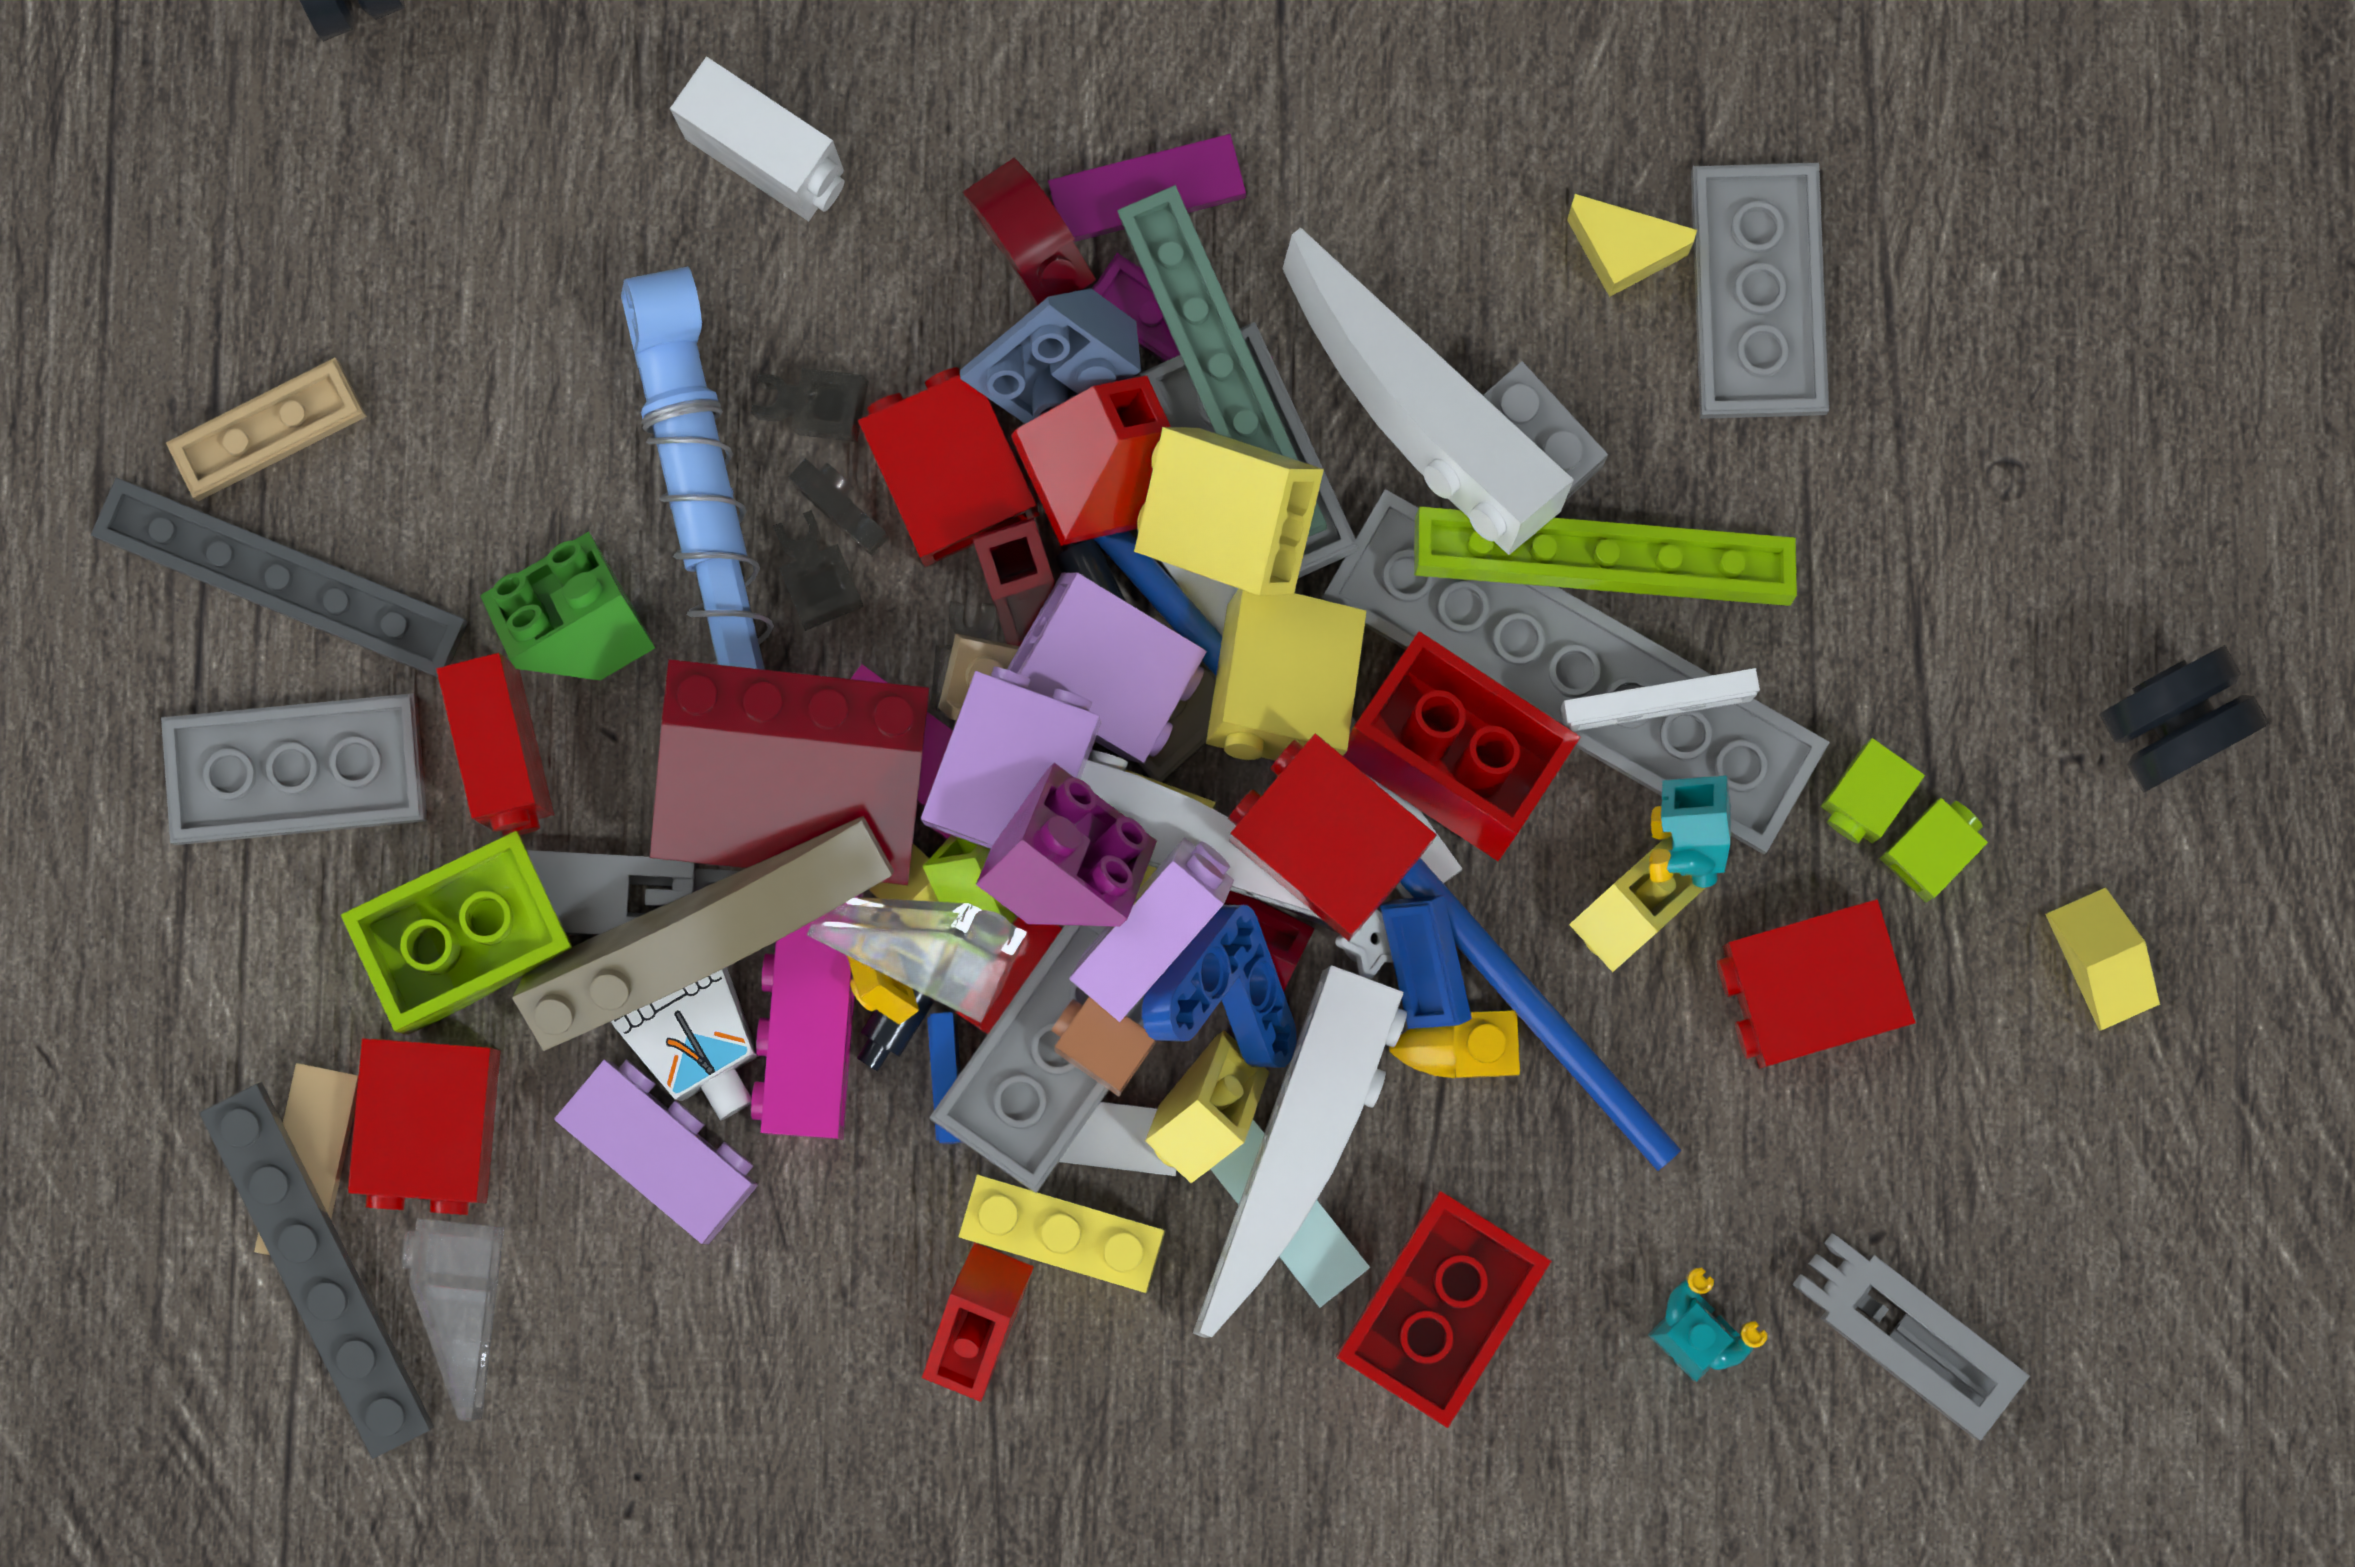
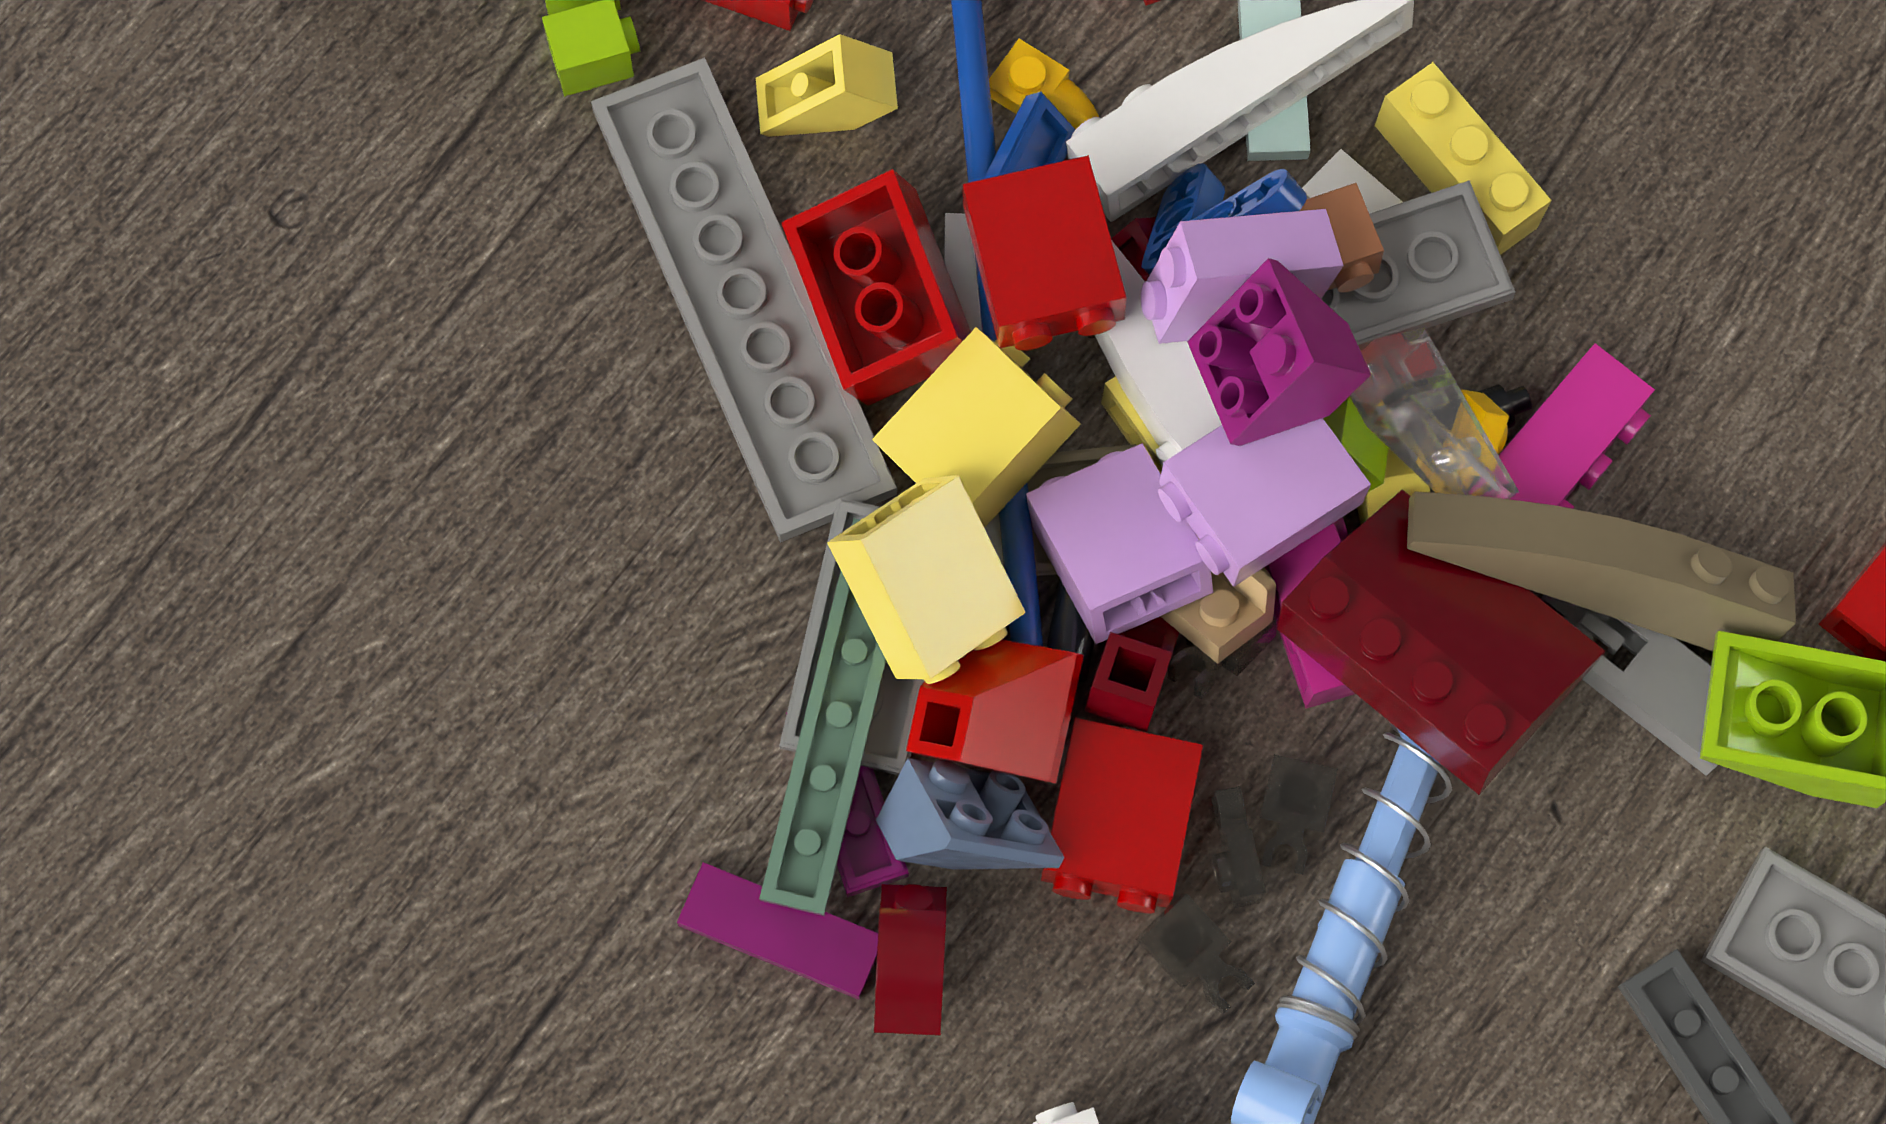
camera: 155 degrees left, 10 degrees down
(495, 744) = (1670, 847): red brick -> none
(567, 615) = (1532, 923): bright green slope -> none
(658, 1149) = (1744, 446): lavender brick -> none
(695, 1042) = (1660, 489): white torso -> none
(944, 1062) = (1471, 339): blue tile -> none
(977, 1321) = (1574, 146): red slope -> none
(1207, 1110) = (1294, 140): light yellow slope -> none
(1426, 405) = (698, 563): white slope -> none
(1547, 424) = (623, 487): light grey brick -> none
(1613, 558) = (651, 355): lime plate -> none
(1626, 243) = (433, 585): light yellow slope -> none
(1660, 700) = (697, 209): white tile -> none
(1700, 822) = (744, 96): teal piece -> none
(1759, 290) = (355, 484): light grey tile -> none

